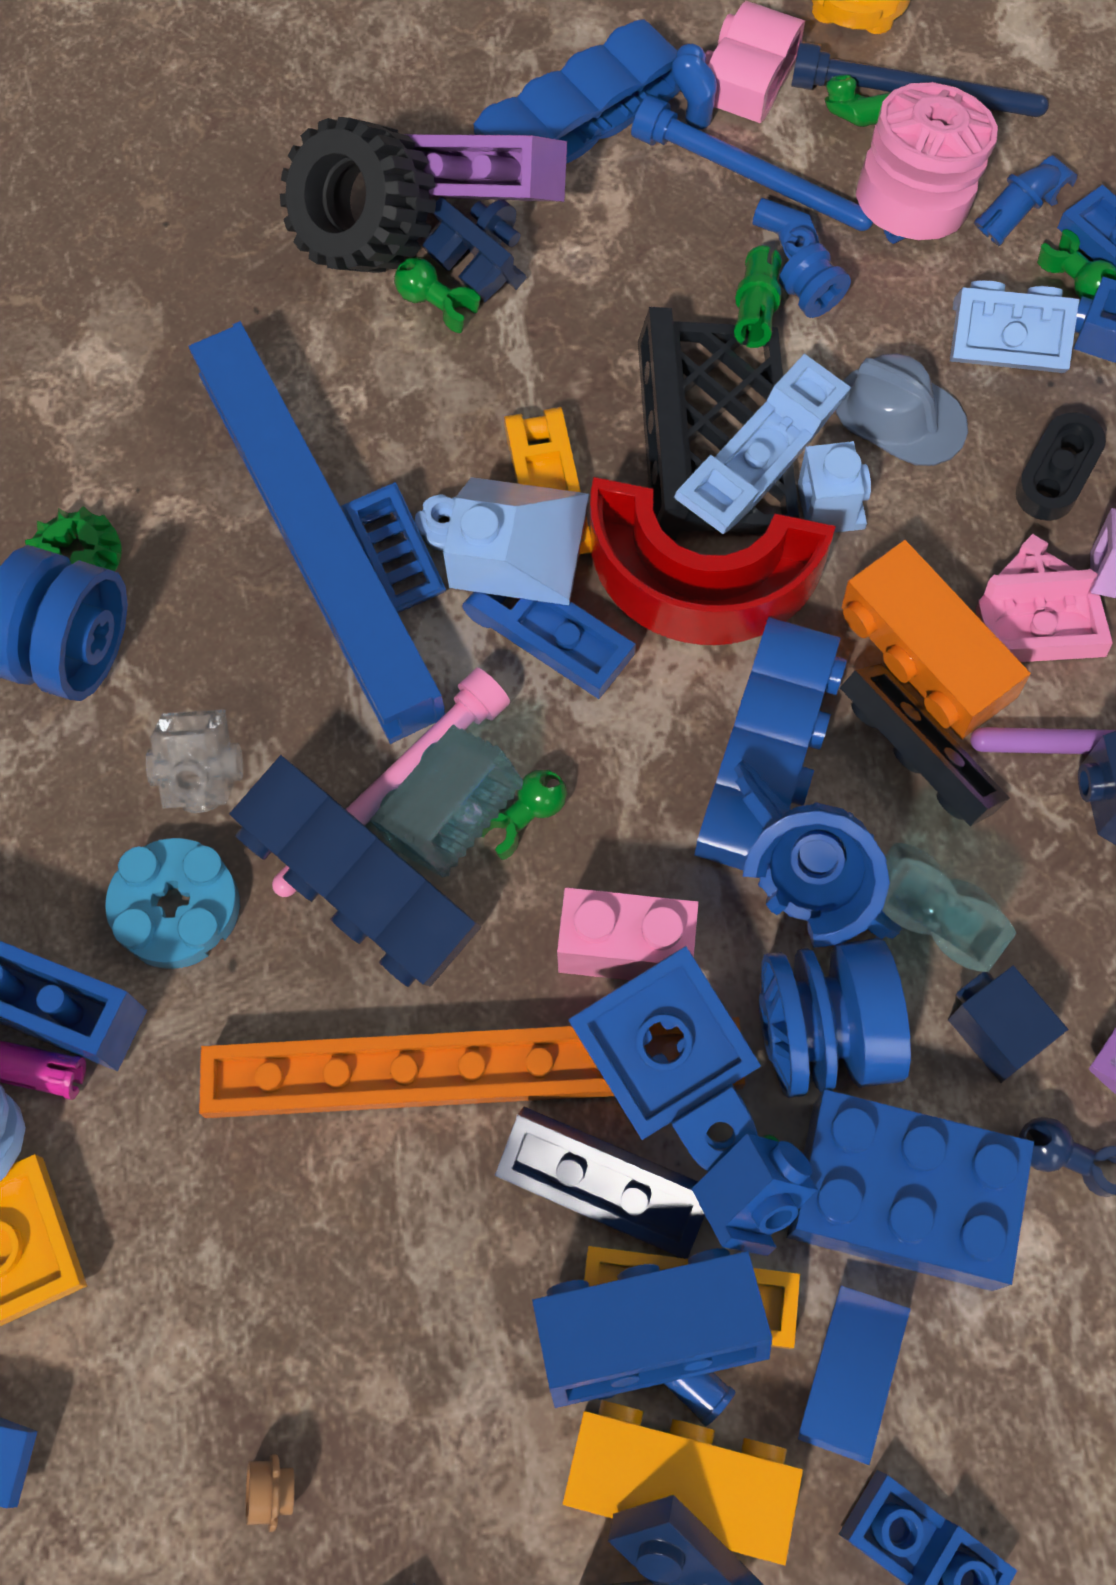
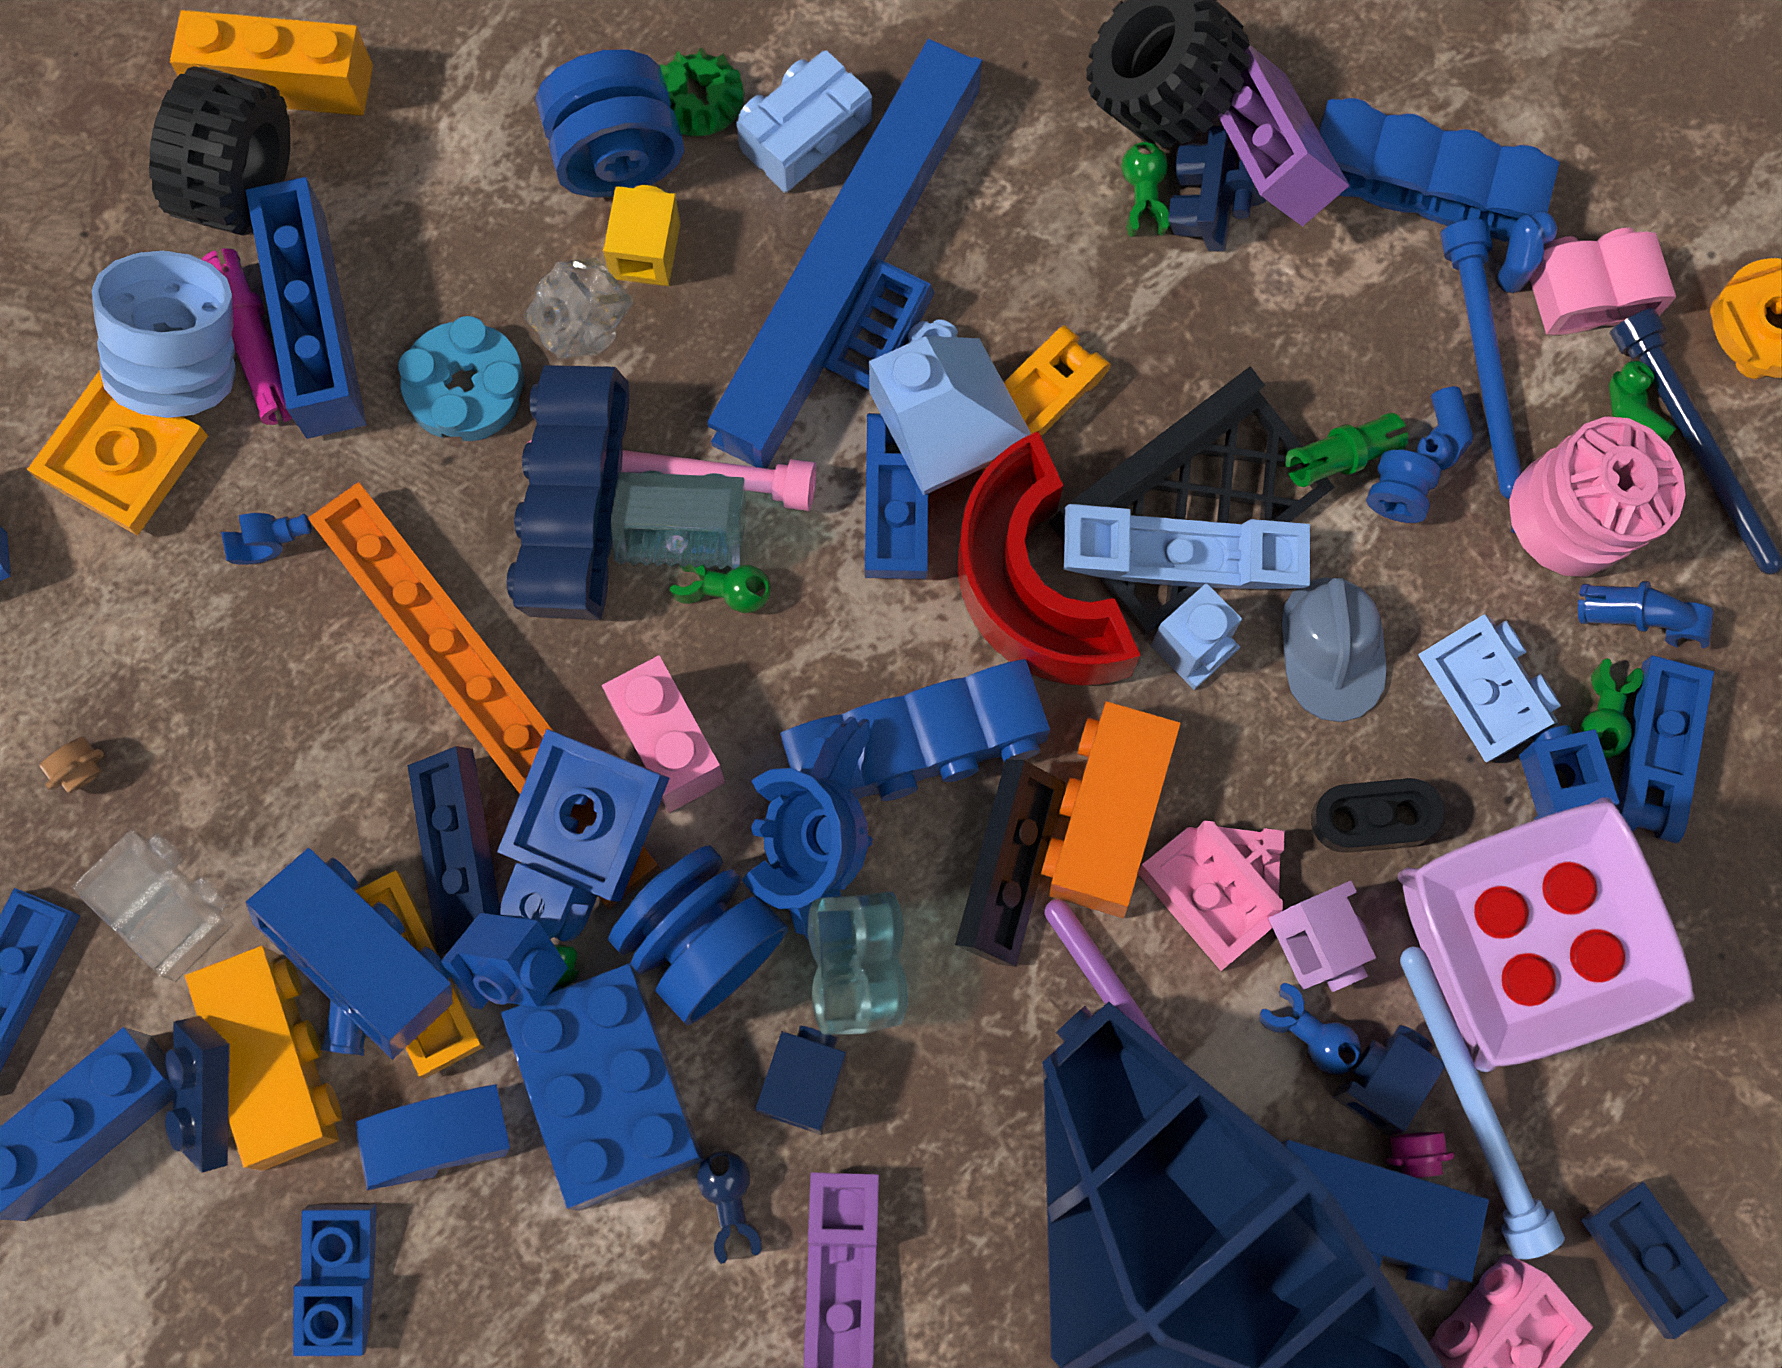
camera: 50 degrees right, 5 degrees up
(167, 668) = (642, 235): none -> yellow brick
(170, 485) = (803, 119): none -> light blue brick
(183, 1168) = (262, 537): none -> blue piece
(461, 1496) = (155, 904): none -> clear brick

